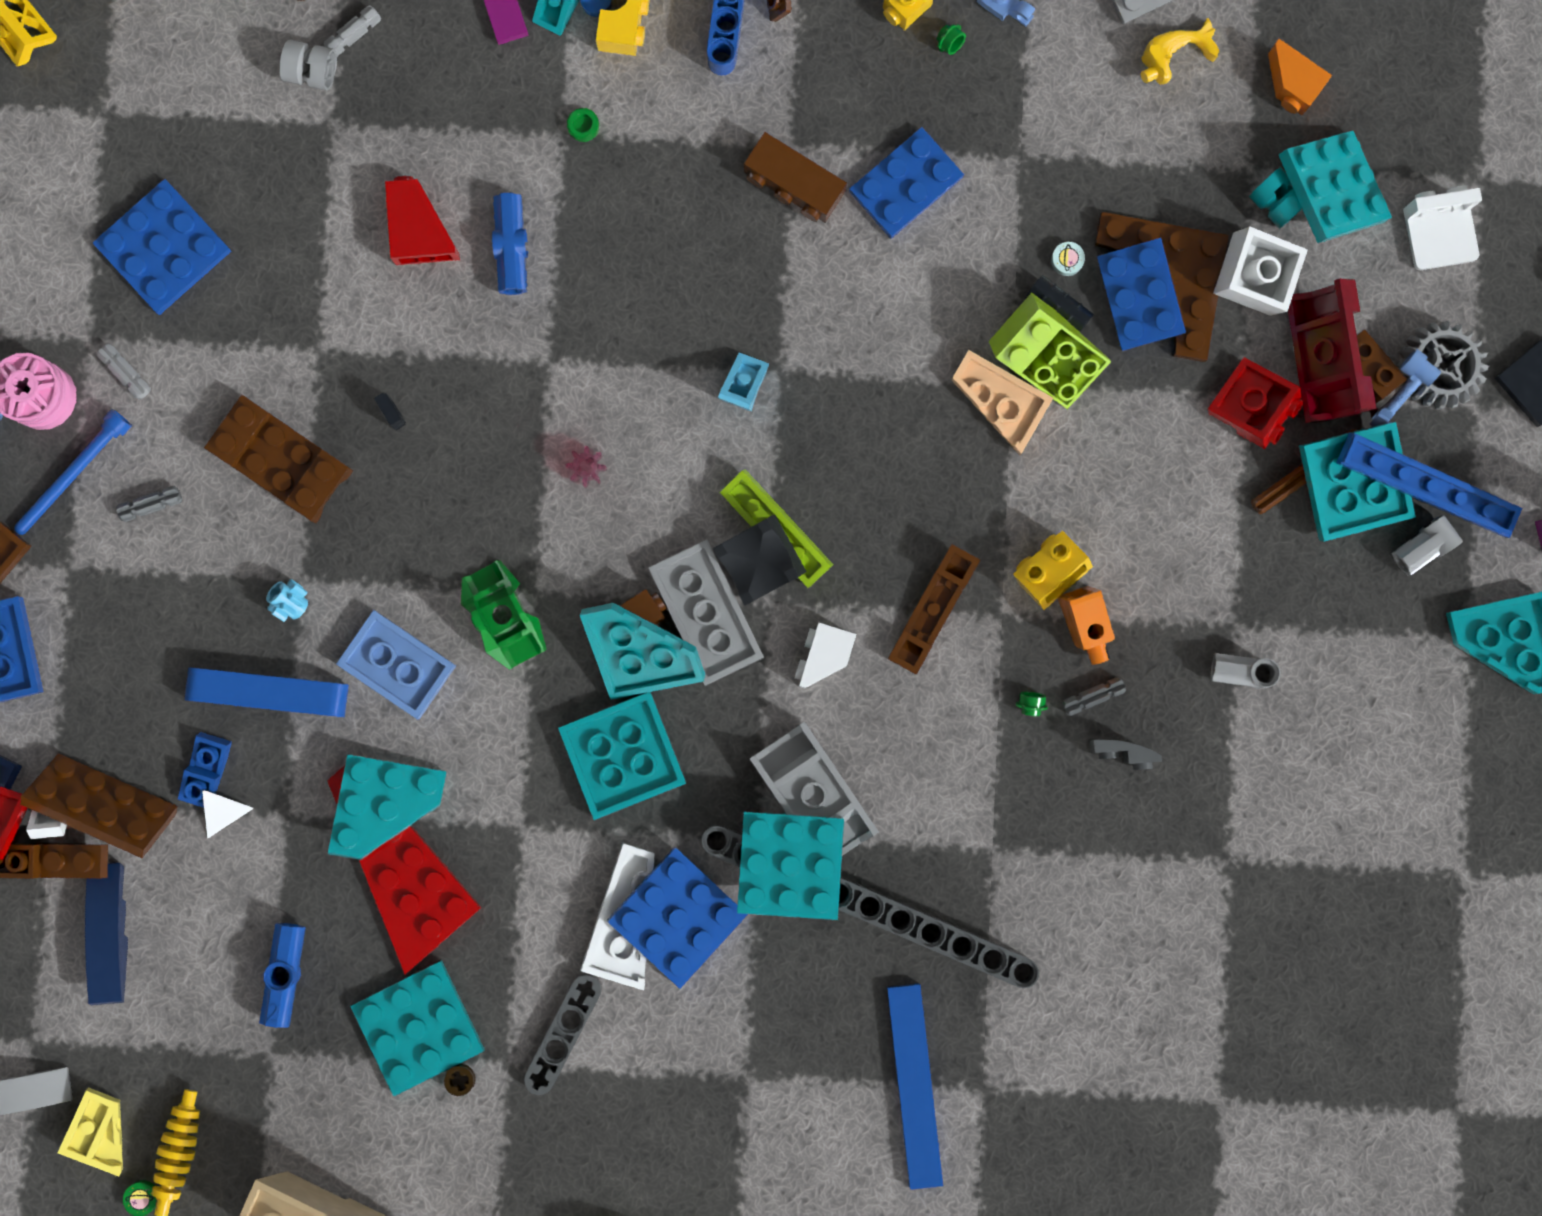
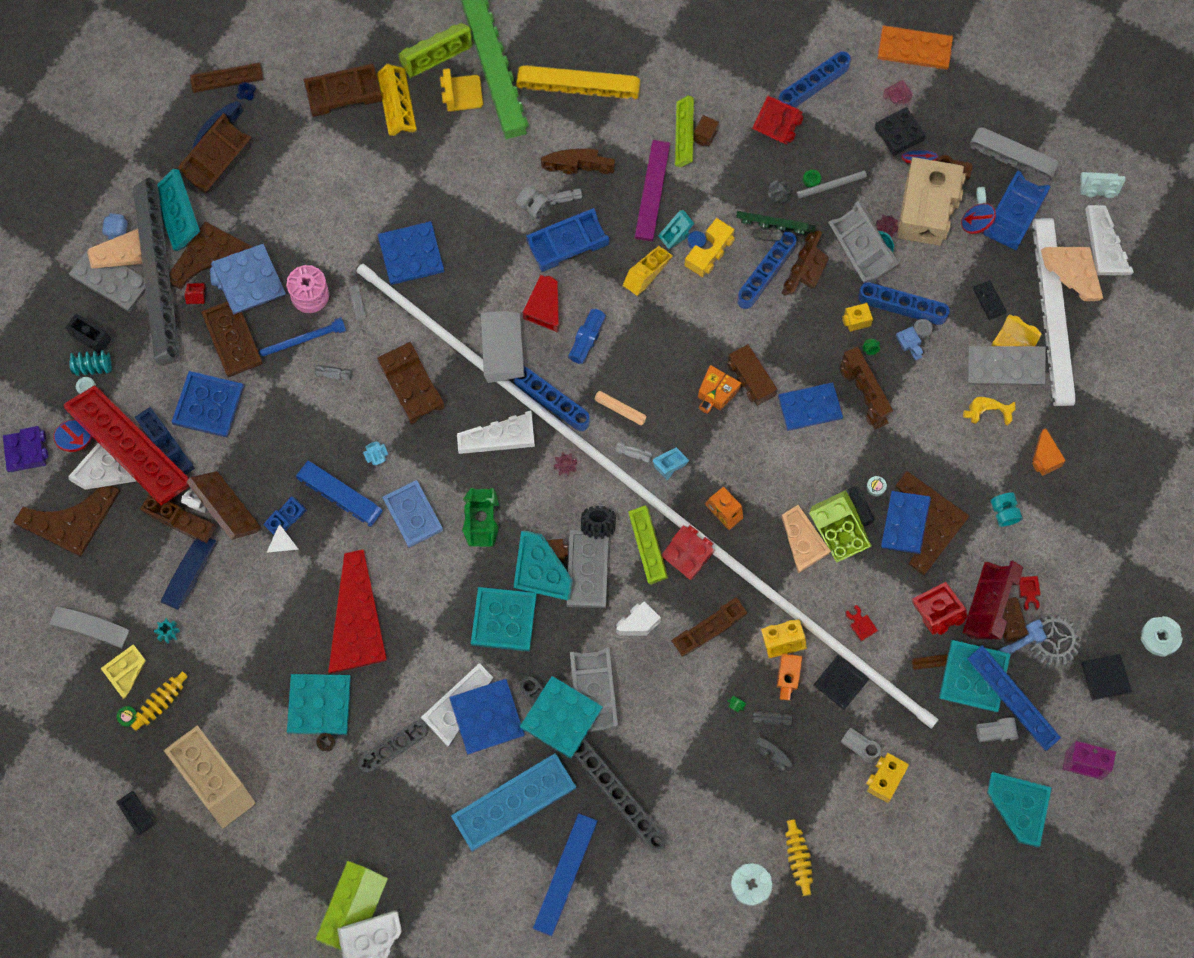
camera: 30 degrees right, 15 degrees down
(135, 1037) = (171, 634): none -> teal gear
(279, 996) = (258, 649): blue piece -> none
(380, 802) = (366, 577): teal plate -> none
(388, 328) = (502, 346): none -> light grey slope
(390, 411) = (480, 386): black tile -> none
(395, 101) = (567, 239): none -> blue piece
(468, 468) = (508, 434): none -> white wing
(497, 363) = (554, 406): none -> blue beam
(545, 88) = (646, 270): none -> yellow slope
(583, 124) = (656, 297): green tile -> none
(621, 333) = (620, 408): none -> light nougat axle
(678, 392) = (633, 451): none -> light grey axle
(679, 521) = (598, 522): none -> black tyre
(753, 229) = (717, 389): none -> orange torso
(760, 559) = (630, 554): black brick -> none
(784, 1022) = (513, 802): none -> dark azure plate
(843, 508) = (688, 551): none -> red plate
(862, 411) = (724, 506): none -> orange torso
(948, 84) = (855, 367): none -> reddish brown piece
(1155, 488) = (862, 626): none -> red plate
(1165, 590) = (841, 682): none -> black tile
(1173, 945) = (740, 888): none -> light aqua plate
(1237, 884) = (799, 857): none -> yellow piece
(1260, 271) = (975, 540): white brick -> none
(1304, 576) = (921, 713): none -> white piece
(1311, 700) = (887, 777): none -> yellow brick
(1335, 186) = (1039, 517): teal plate -> none
(1372, 307) = (1029, 589): none -> red plate
(1442, 227) = (1089, 568): white bracket -> none

